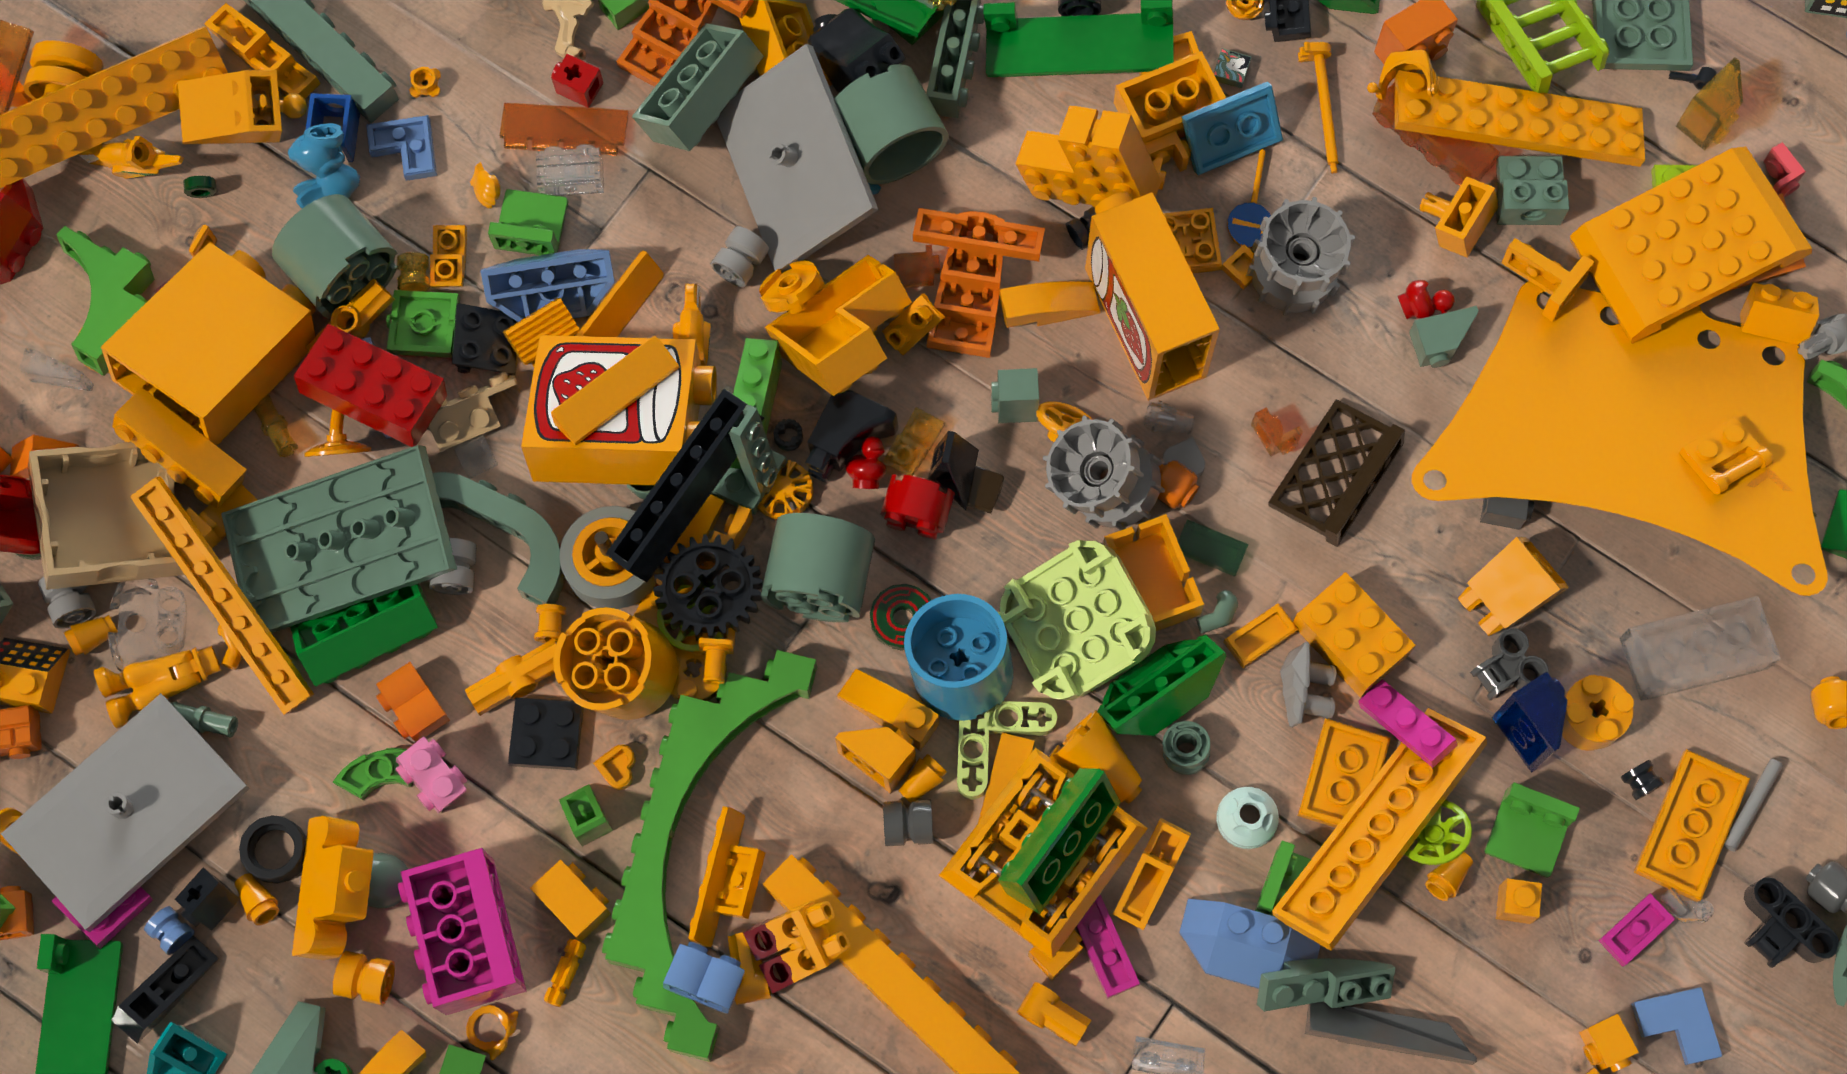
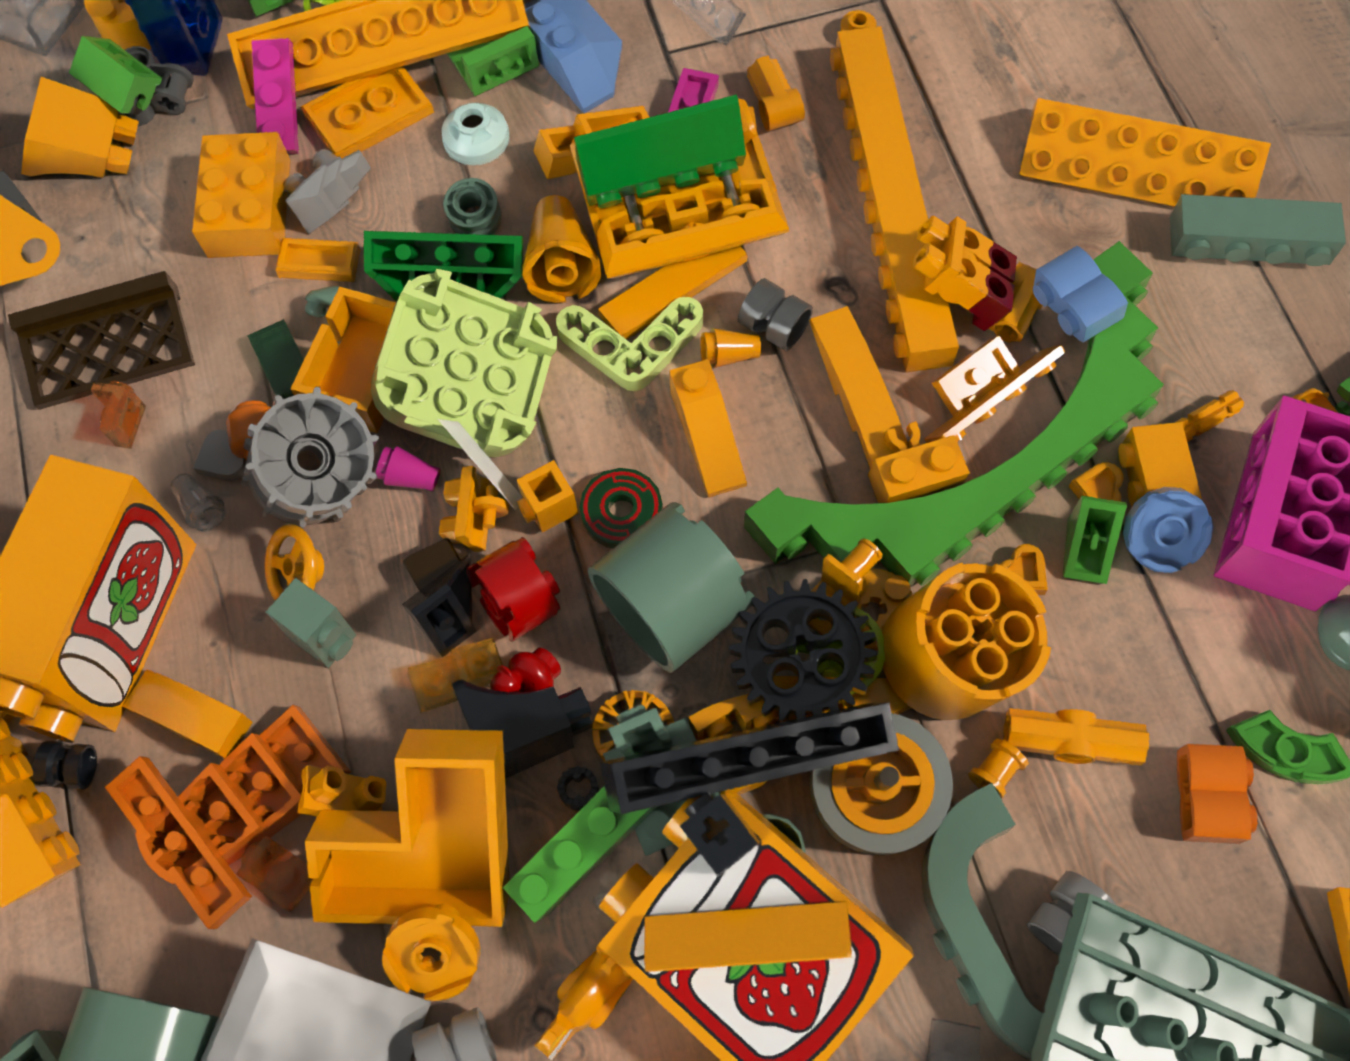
camera: 140 degrees left, 5 degrees down
(361, 633) = (1252, 919): green slope -> none
(431, 775) = (1244, 688): bright pink brick -> none
(539, 854) = (1168, 529): none -> medium blue tile
(545, 734) = (1084, 658): black plate -> none
(604, 865) = (1099, 482): none -> light orange tile
(665, 422) = (717, 853): none -> black brick
(728, 775) = (917, 470): none -> light orange brick
(812, 813) = (857, 381): none -> light orange slope
(878, 753) = (755, 379): light orange slope -> none
(948, 576) = (546, 497): none -> light orange brick
(959, 656) = (598, 366): dark azure brick -> none
(990, 543) = (476, 509): none -> light orange hips
(1005, 566) = (482, 461): none -> white sticker
(1057, 535) = (406, 470): none -> dark pink cone
(1526, 641) = (113, 74): none -> bright green hinge

